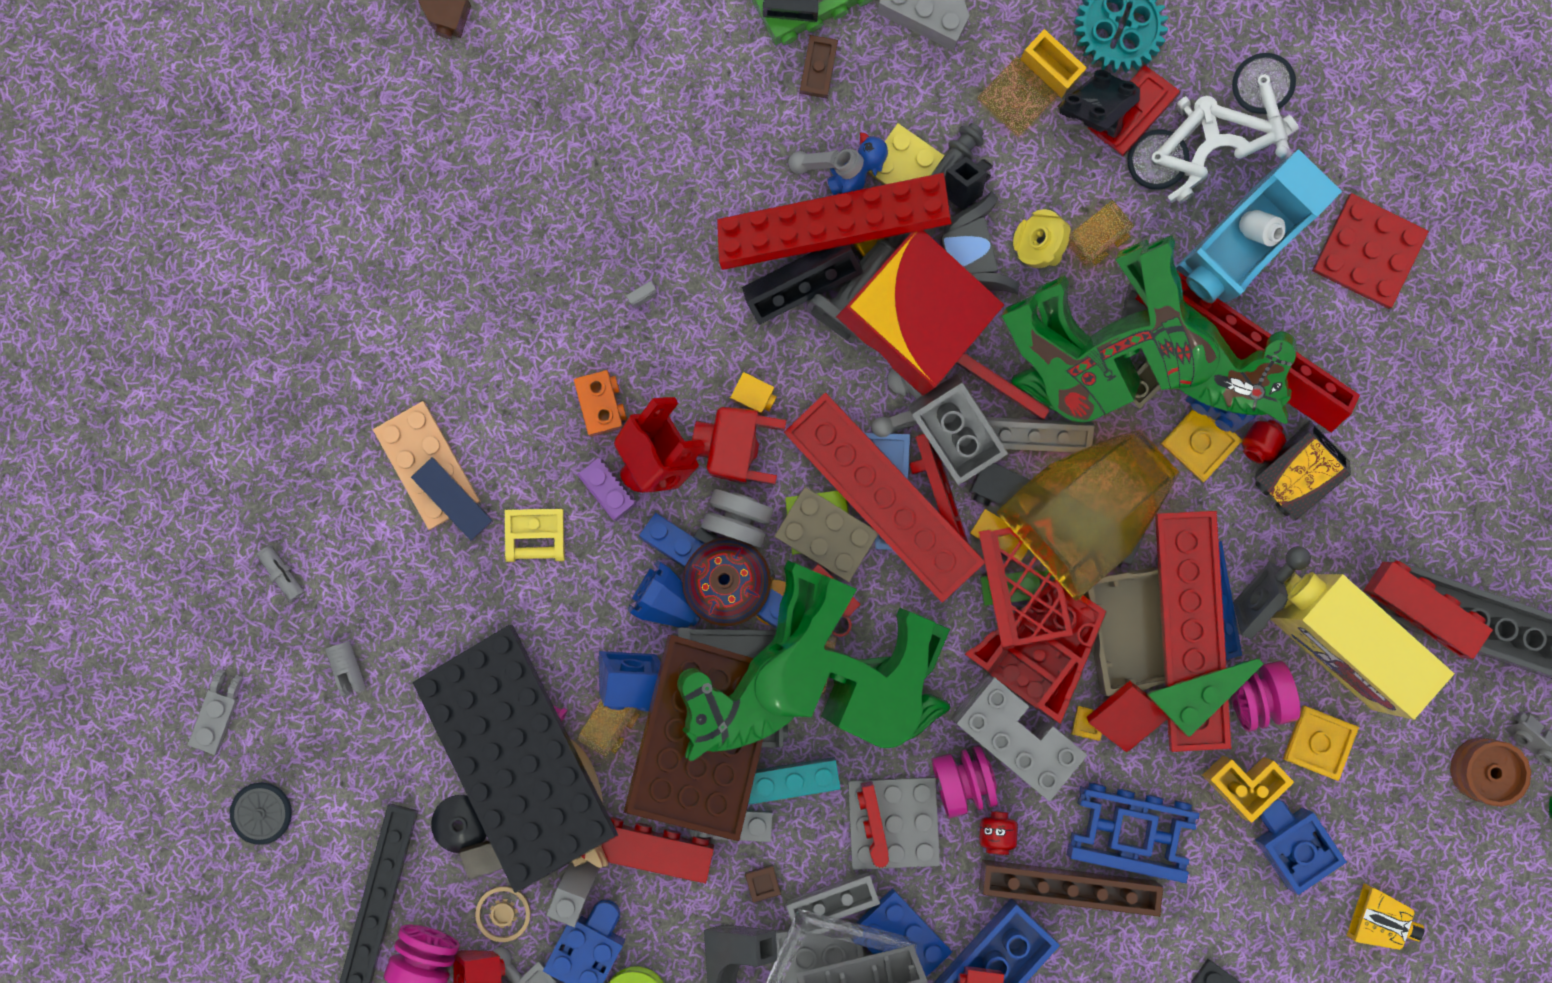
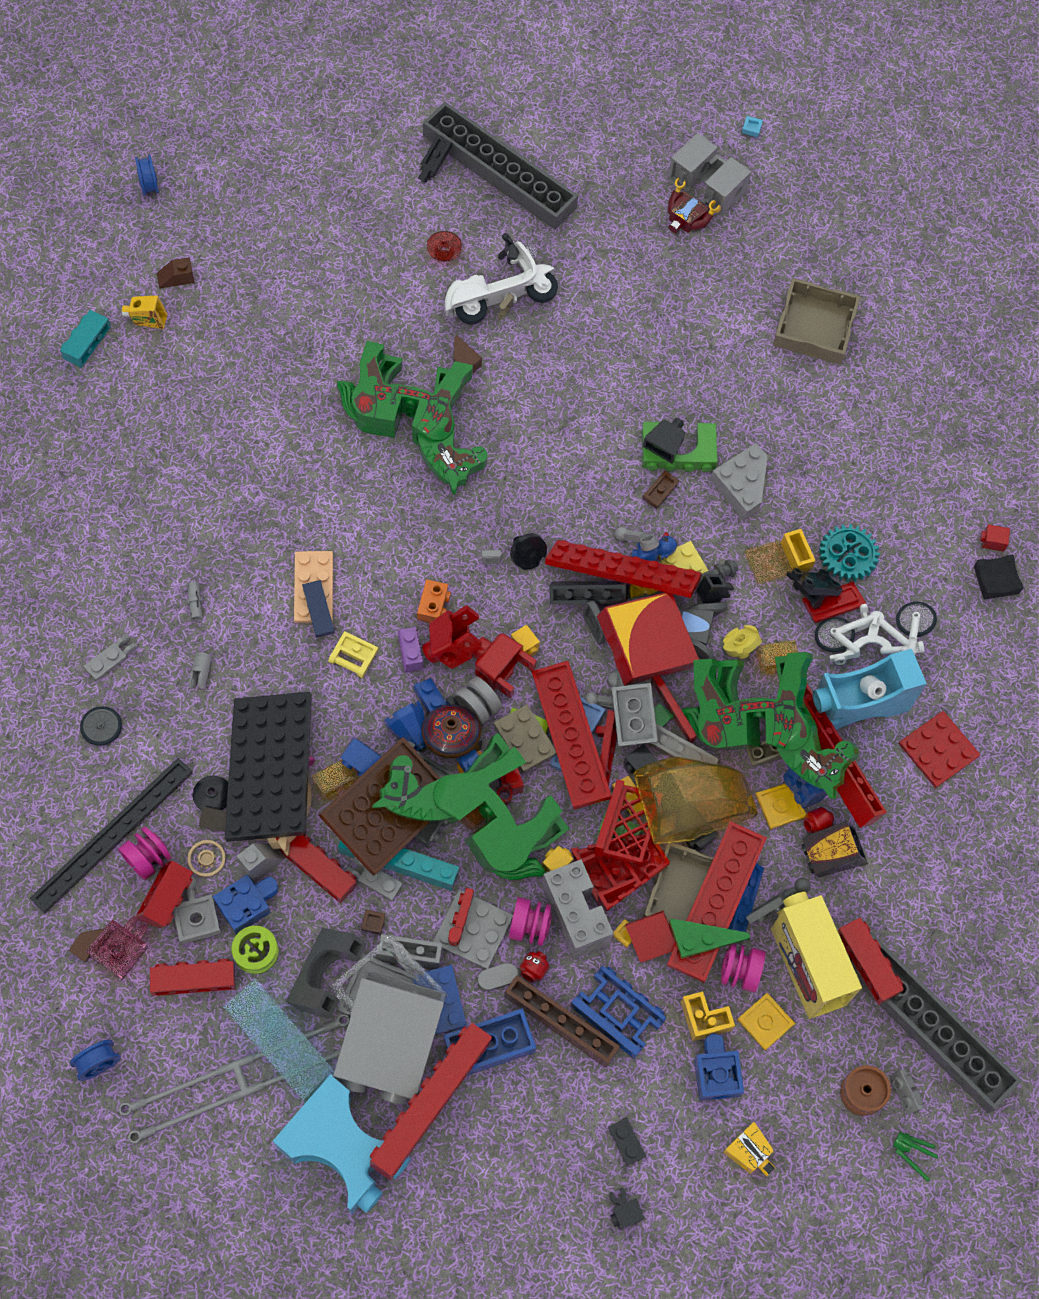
camera: 25 degrees right, 20 degrees down
(367, 152) = (379, 405): none -> green animal
(686, 260) = (528, 551): none -> black tile
(955, 678) = (557, 858): none -> yellow brick
(957, 867) = (497, 976): none -> light grey tile
(986, 400) = (662, 715): none -> green tile

